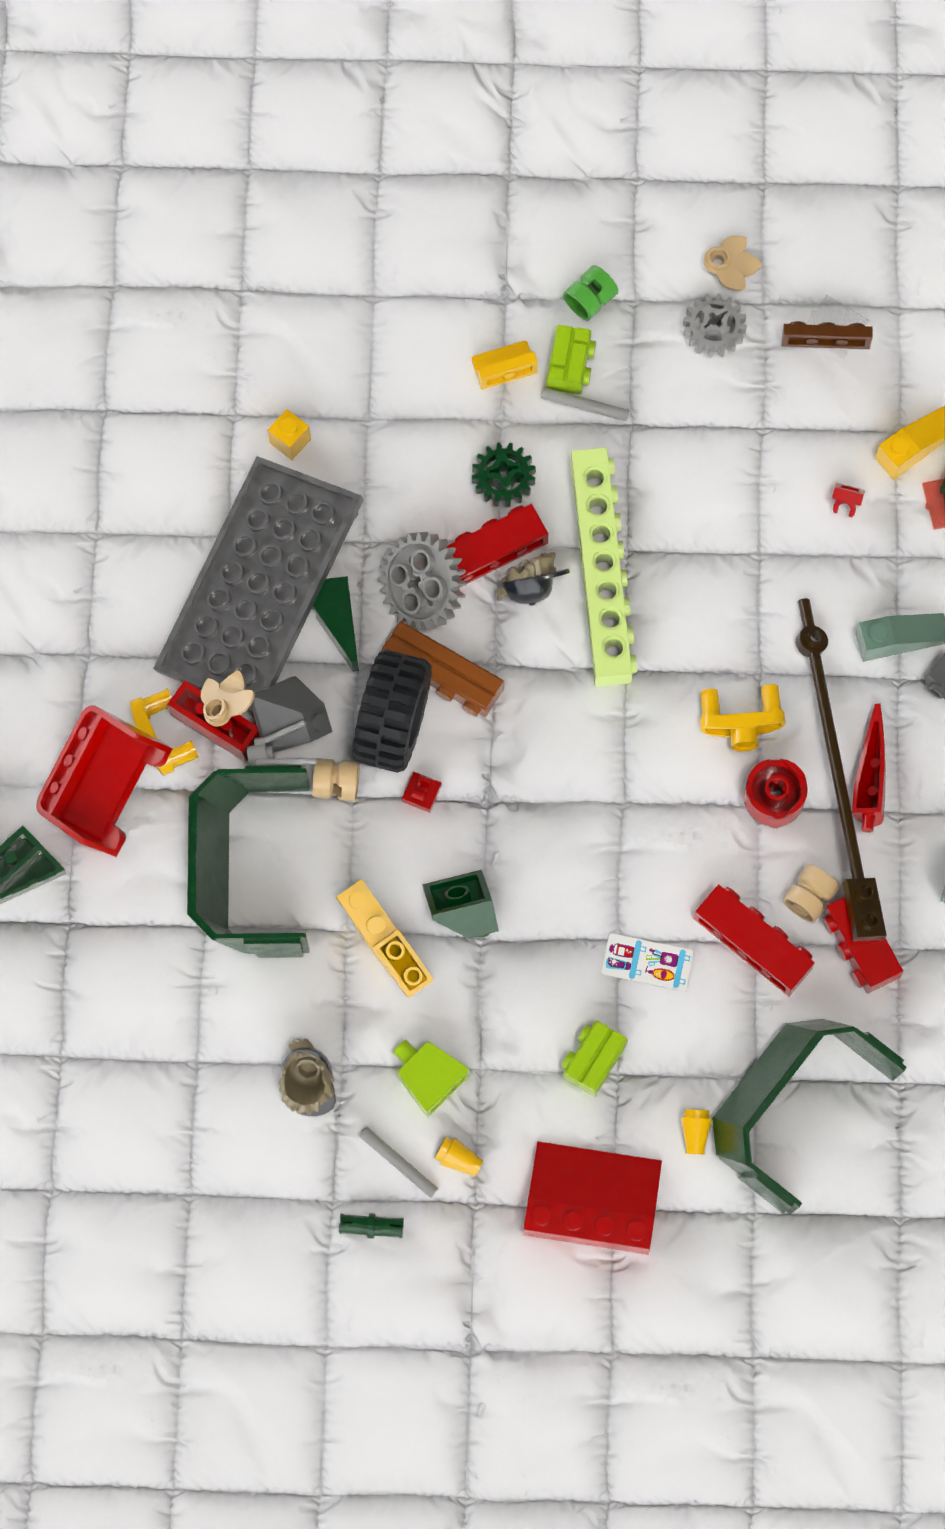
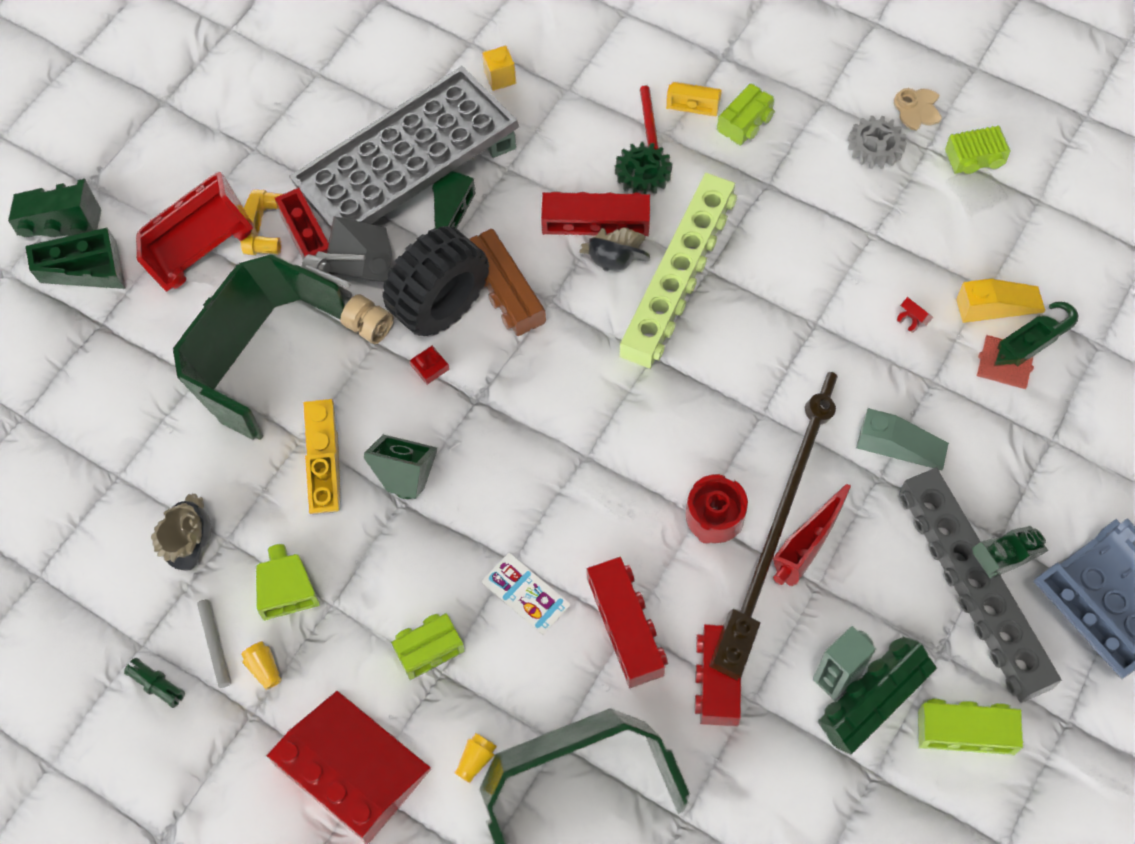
camera: 30 degrees right, 10 degrees down
(228, 696) = (315, 211): tan plate -> none
(422, 580) = (527, 206): light grey gear -> none
(472, 411) = (648, 116): none -> red bar
(585, 404) = (740, 152): light grey bar -> none
(589, 294) = (790, 76): bright green wheel -> none
(742, 727) = (721, 445): yellow connector -> none
(813, 889) = (698, 608): tan wheel -> none
(816, 284) = (977, 150): none -> lime brick
(827, 335) = (965, 188): reddish brown plate -> none

